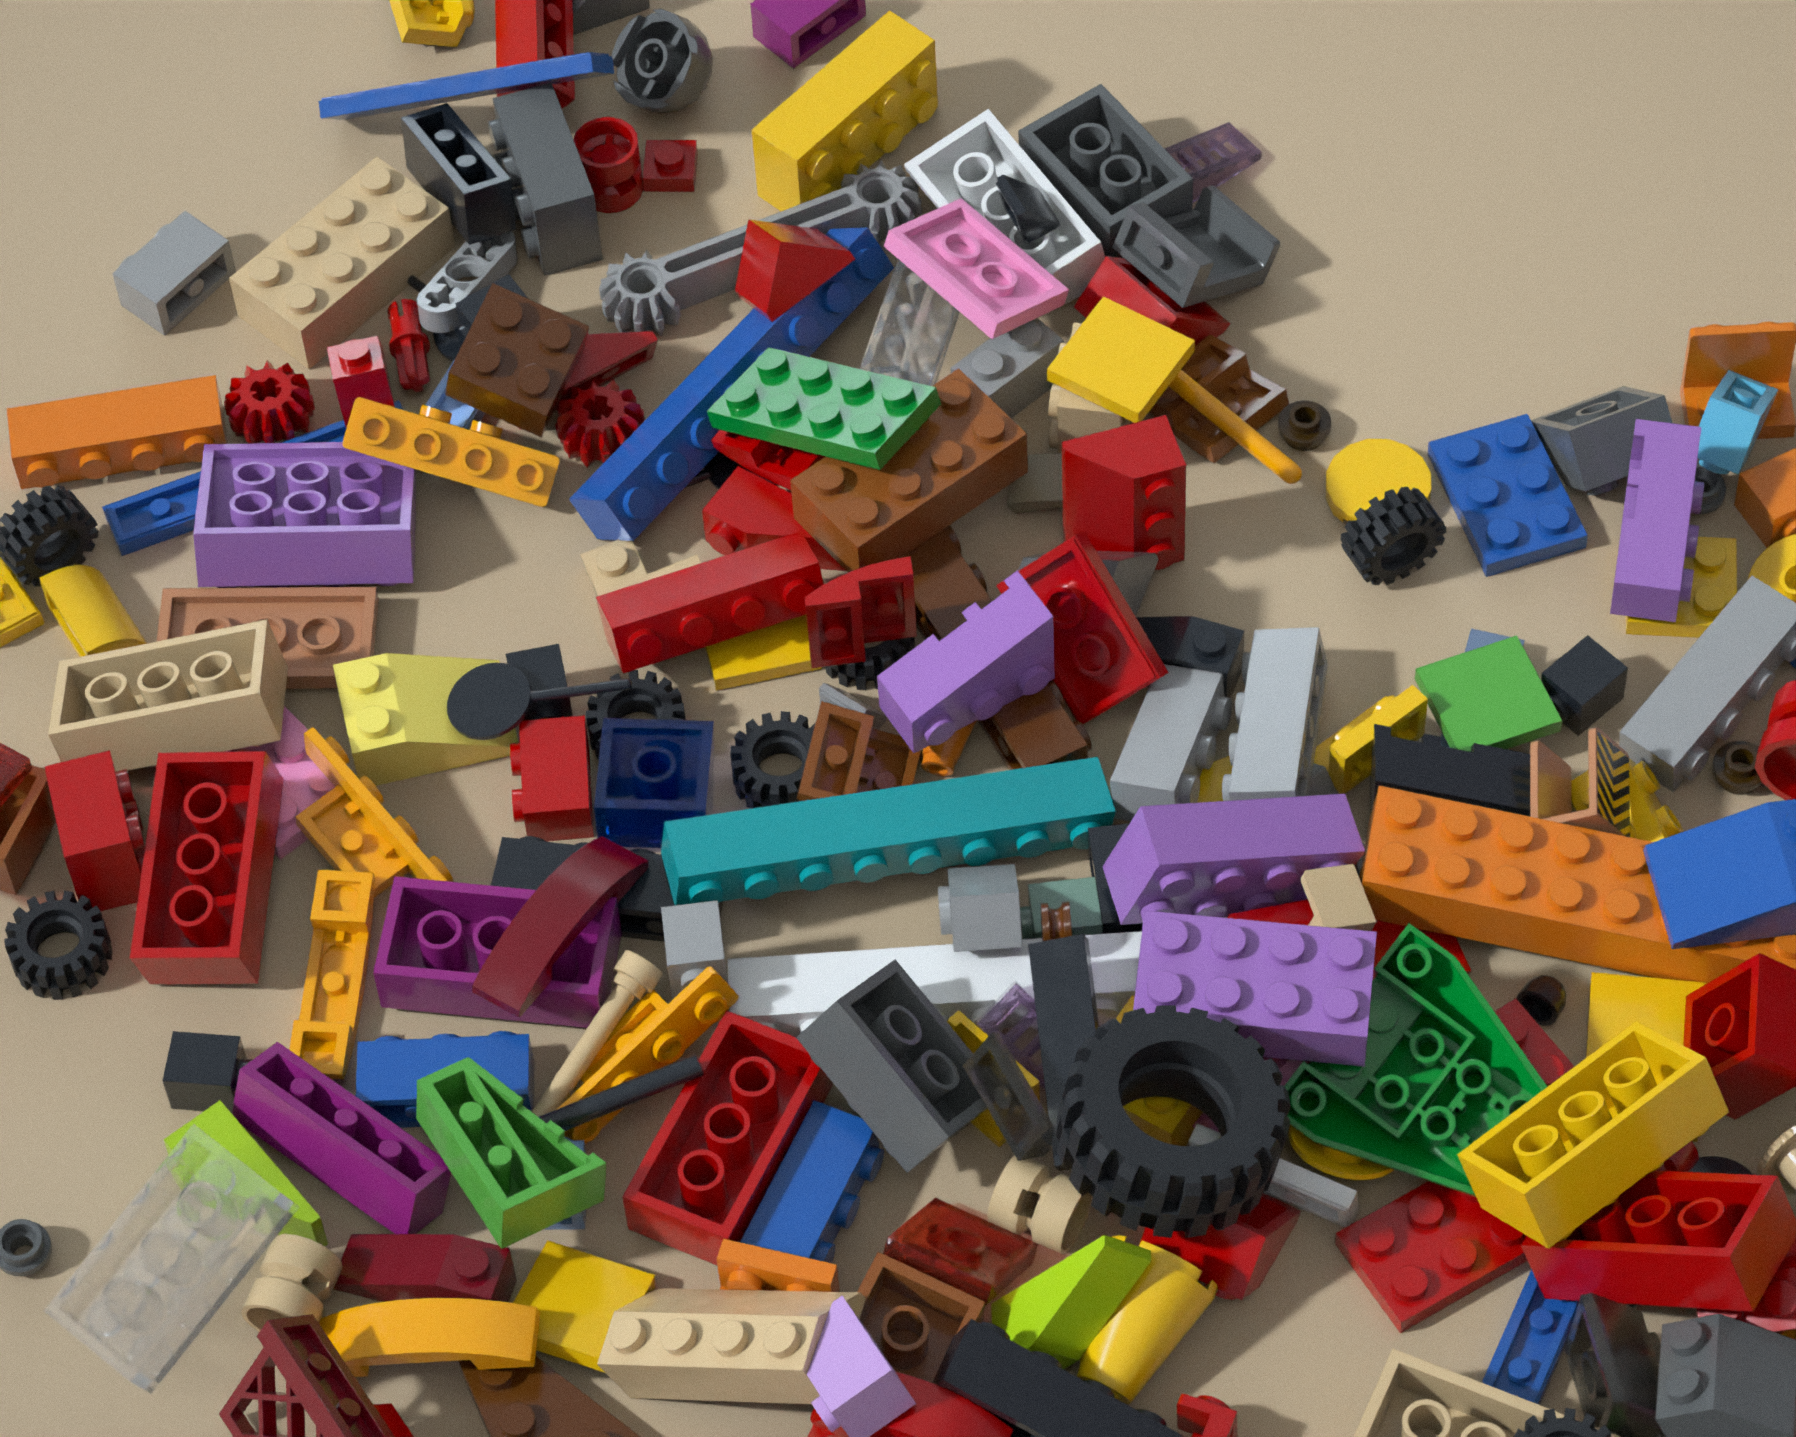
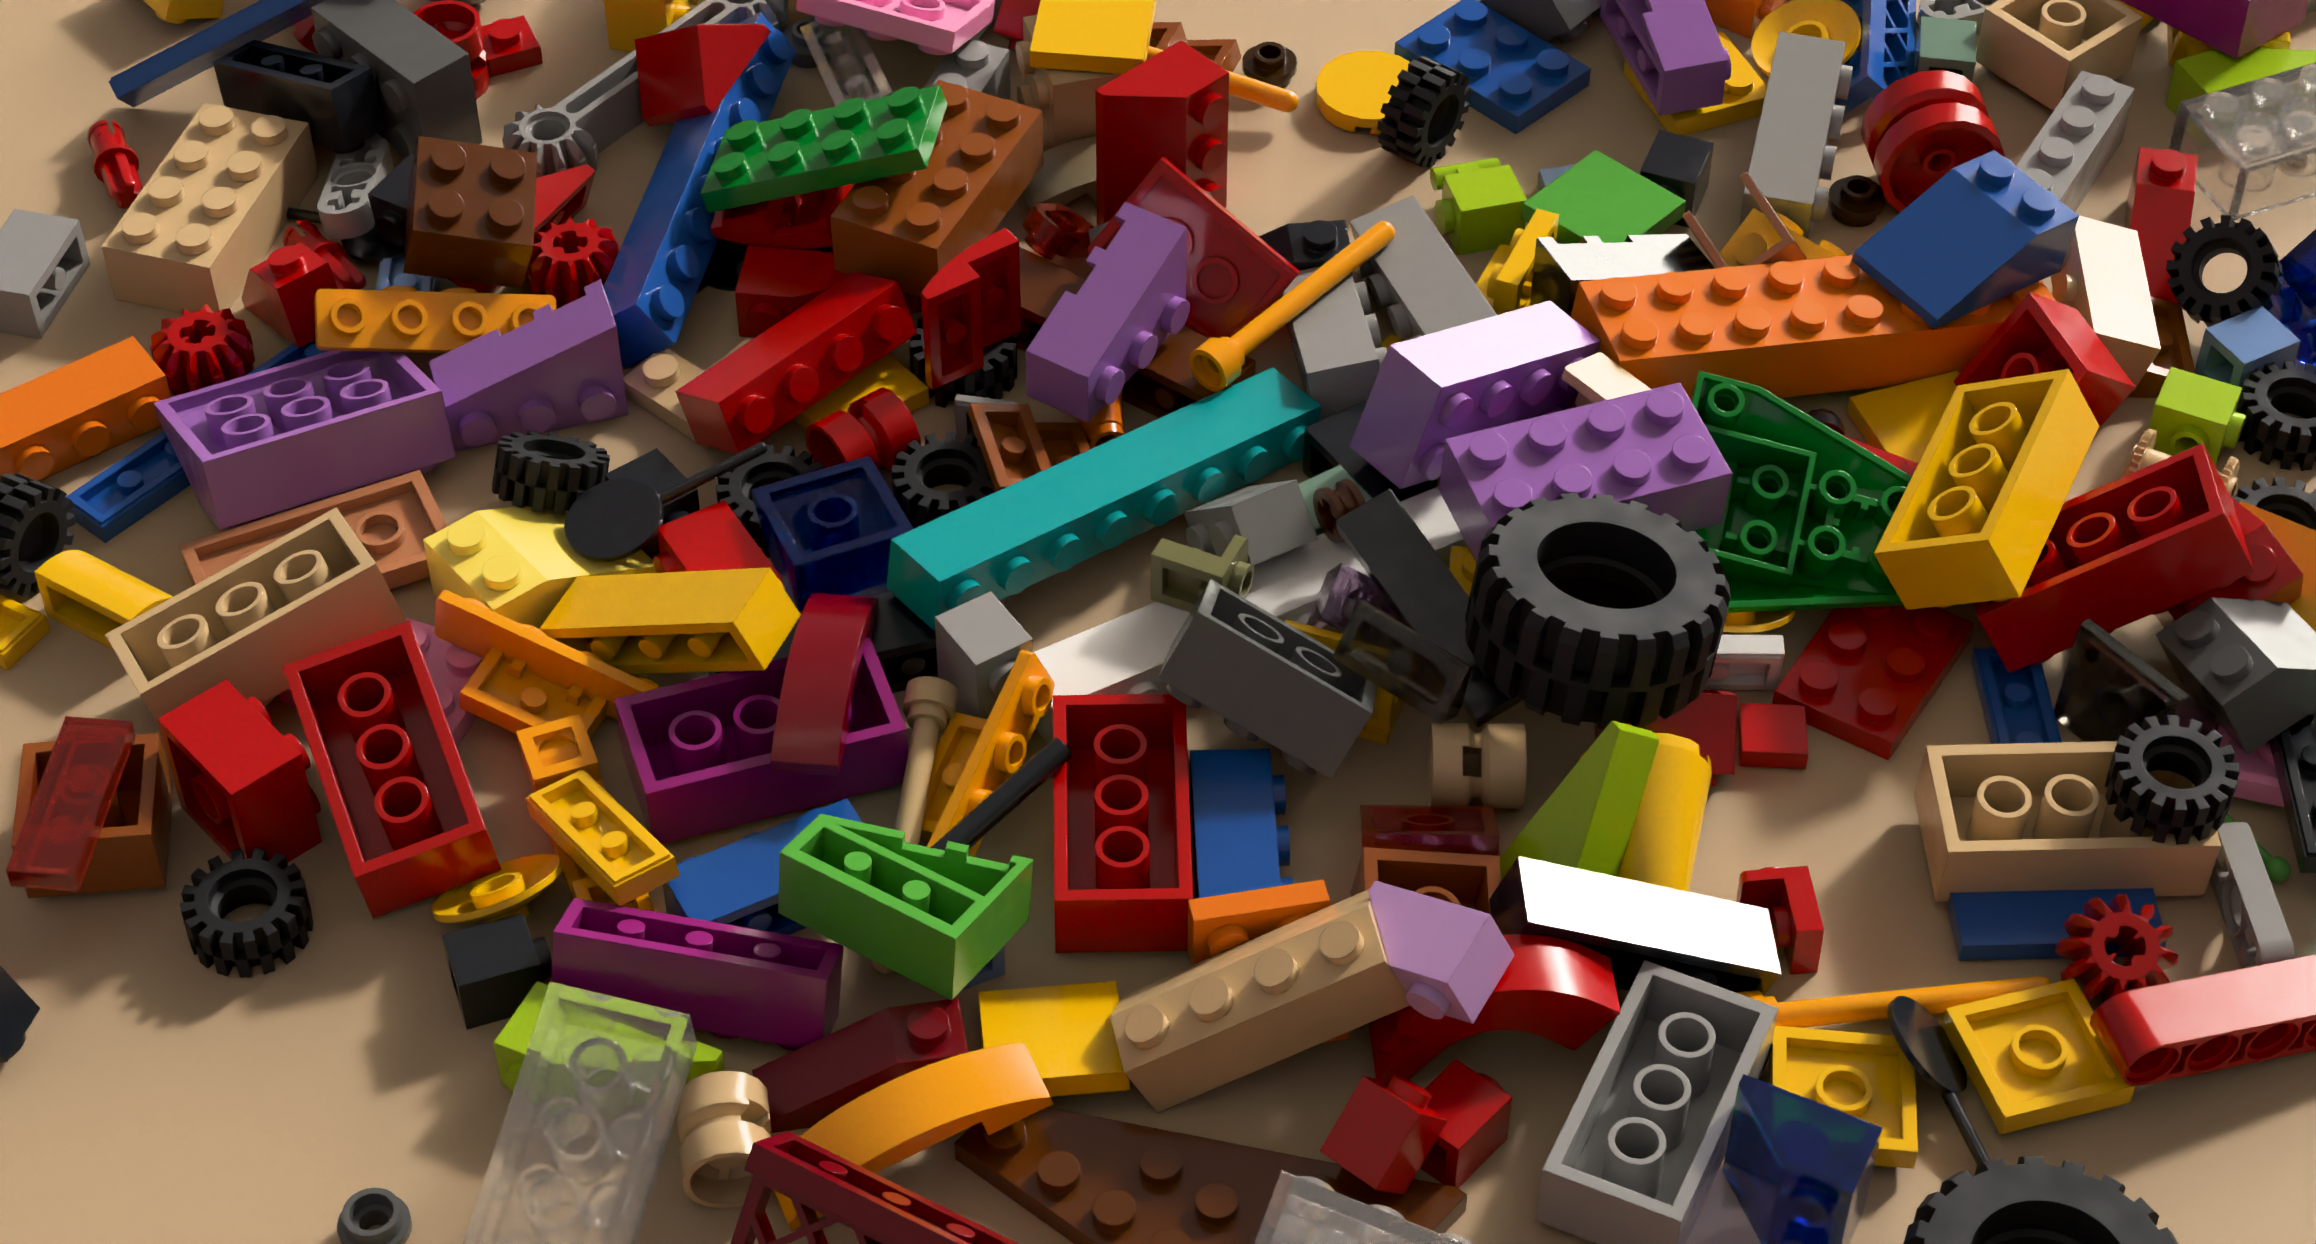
camera: 30 degrees left, 10 degrees down
(241, 1006) = (500, 893): none -> yellow dish
(295, 181) = (115, 162): none -> red axle
(329, 993) = (602, 837): none -> yellow tile
(468, 629) = (546, 470): none -> black tyre
(475, 821) = (676, 620): none -> yellow brick
(505, 532) = (536, 377): none -> medium lavender wedge
(732, 693) = (871, 426): none -> red wheel
(897, 940) = (1183, 571): none -> olive bracket
(1003, 541) = (1057, 230): none -> clear red plate
(1048, 738) = (1221, 359): none -> light orange piece
(1311, 1272) = (1772, 736): none -> red tile
(1390, 644) = (1478, 204): none -> lime brick

